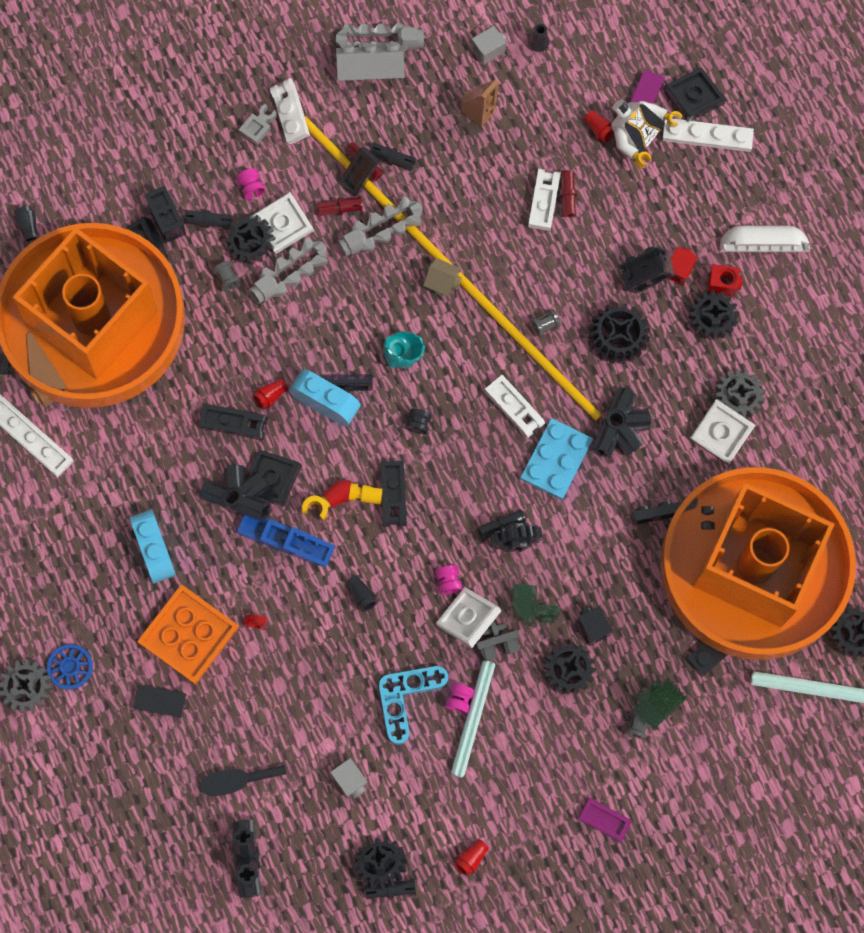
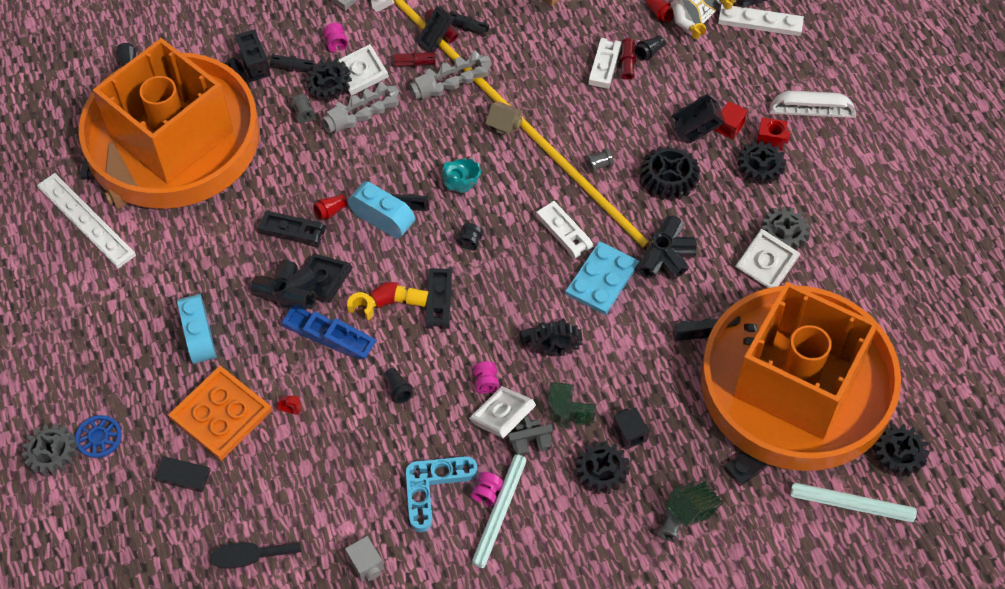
camera: 10 degrees right, 15 degrees down
(590, 178) = (648, 48): none -> black cone

